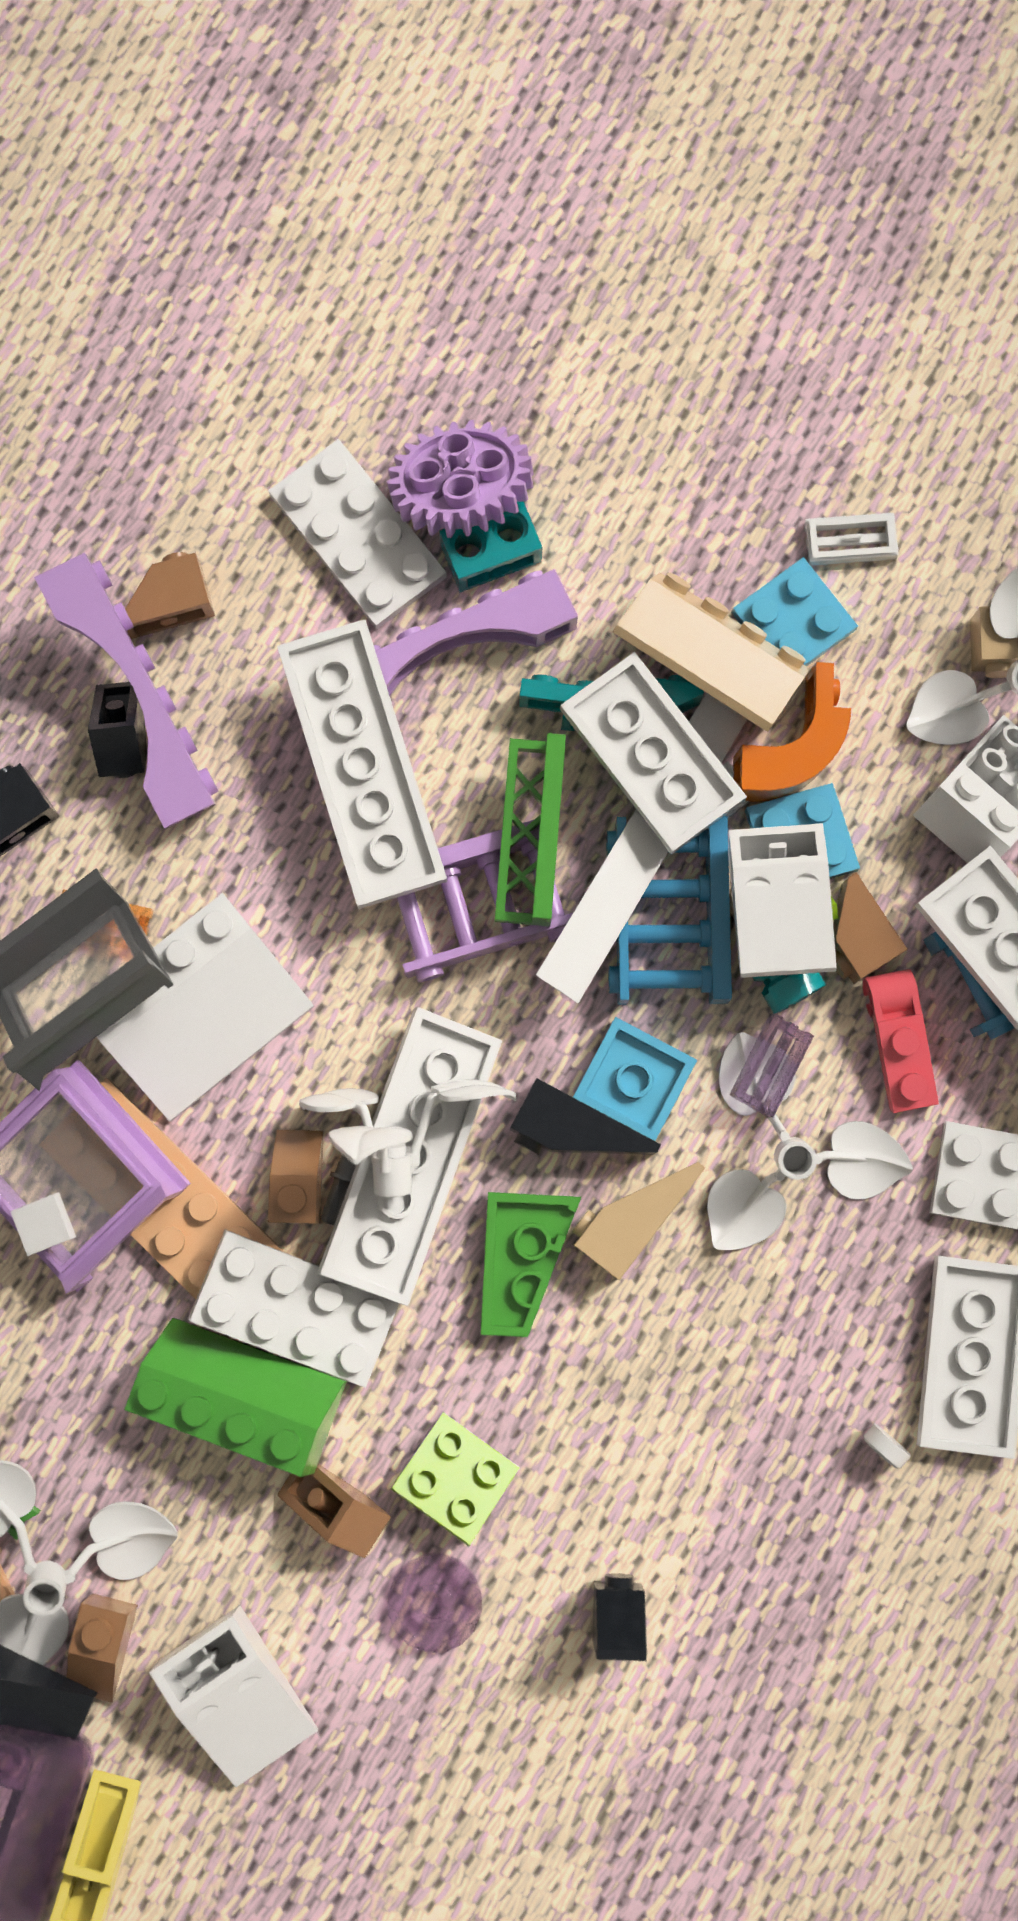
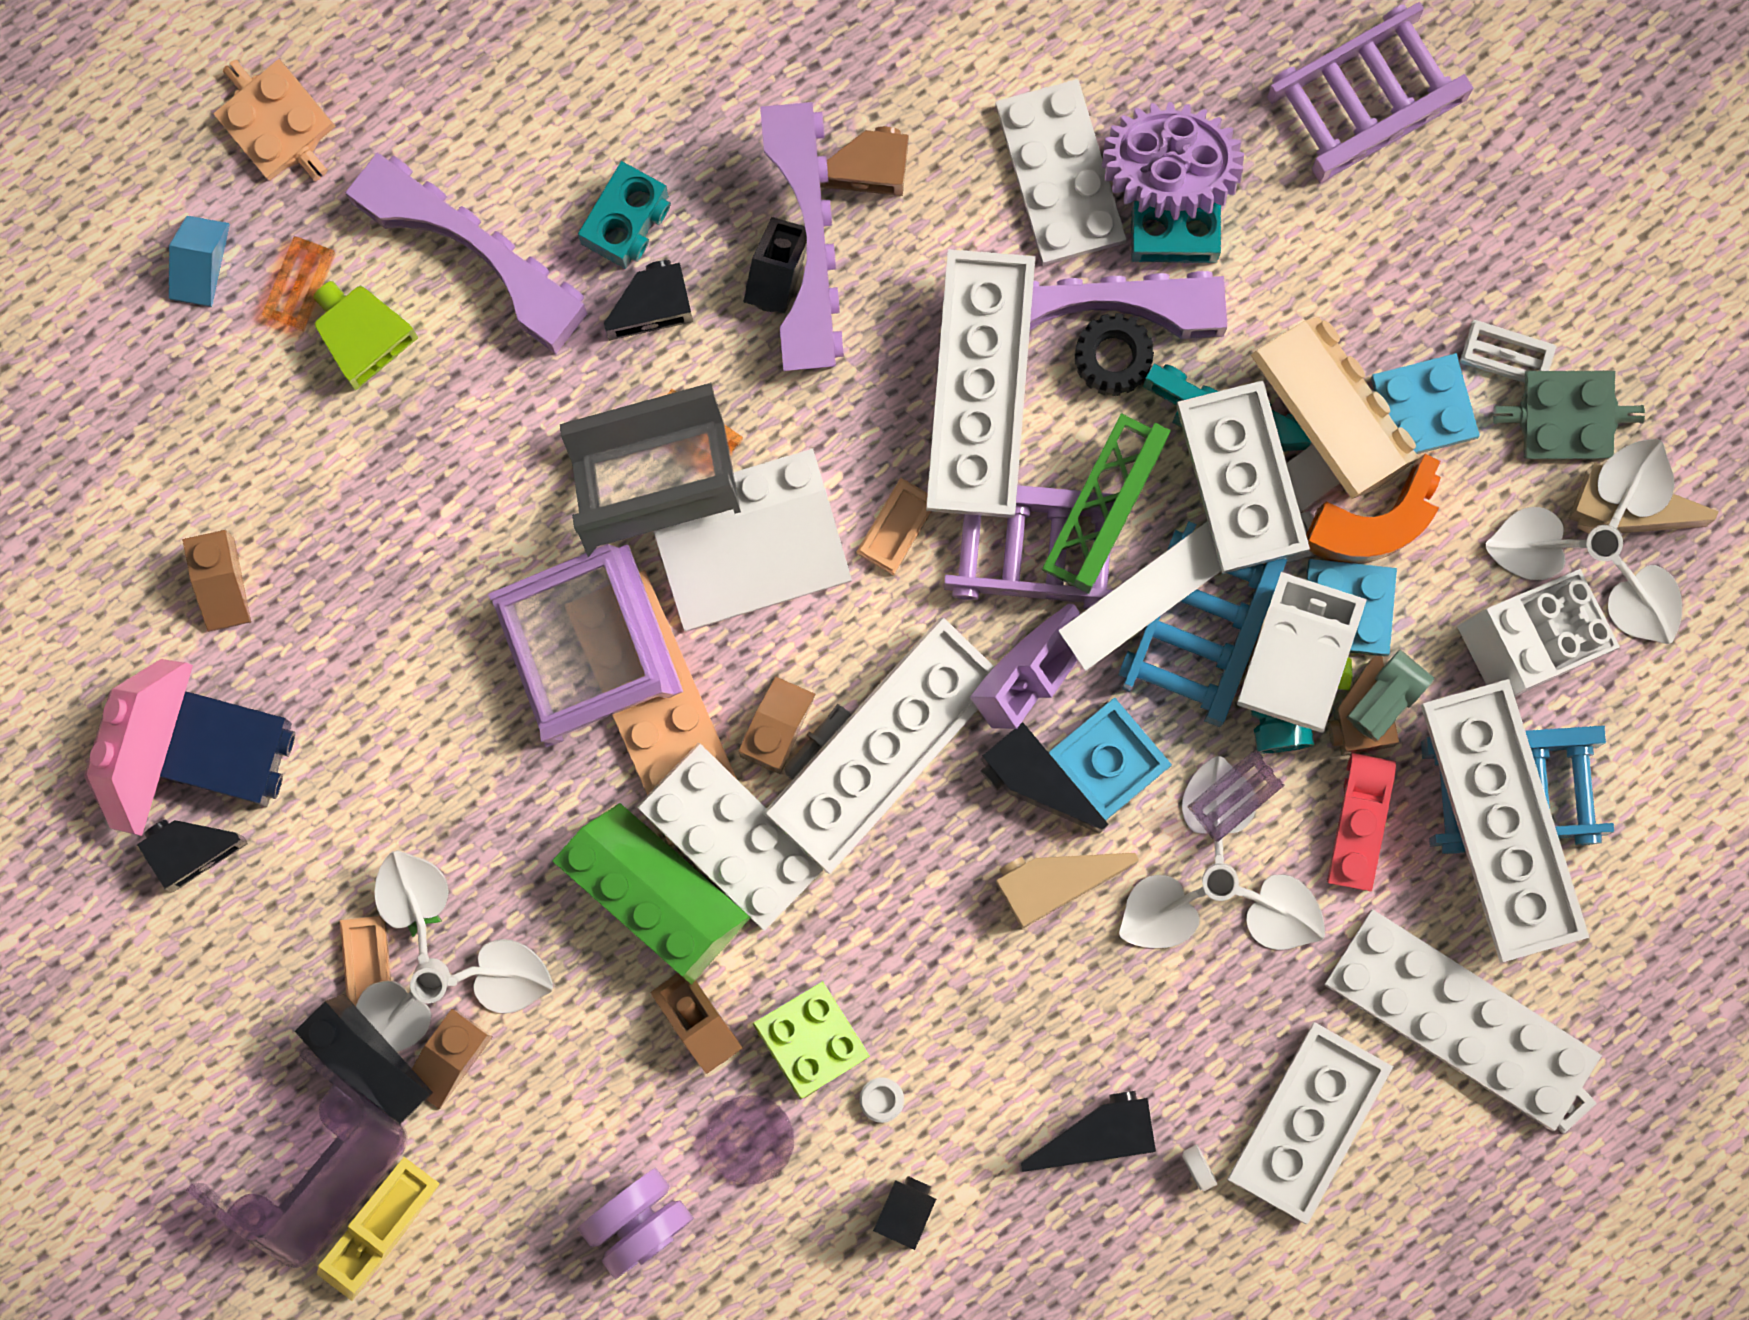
camera: 25 degrees right, 0 degrees up
(43, 1224) = (545, 673): white tile -> none
(233, 1697) = (548, 1145): white slope -> none
(336, 936) = (896, 527): none -> light nougat tile
(356, 1746) = (636, 1224): none -> lavender wheel
(386, 1144) = (865, 739): white plant -> none
(479, 659) = (1122, 329): none -> black tyre
(520, 1255) = (945, 873): bright green wing -> none
(521, 1026) = (1027, 673): none -> lavender slope
(548, 1507) = (881, 1100): none -> white tile
(637, 383) = (1369, 133): none -> lavender fence
(779, 1453) = (1103, 1134): none -> black slope
(885, 895) = (1396, 688): none -> sand green piece
(933, 572) = (1569, 414): none -> sand green plate

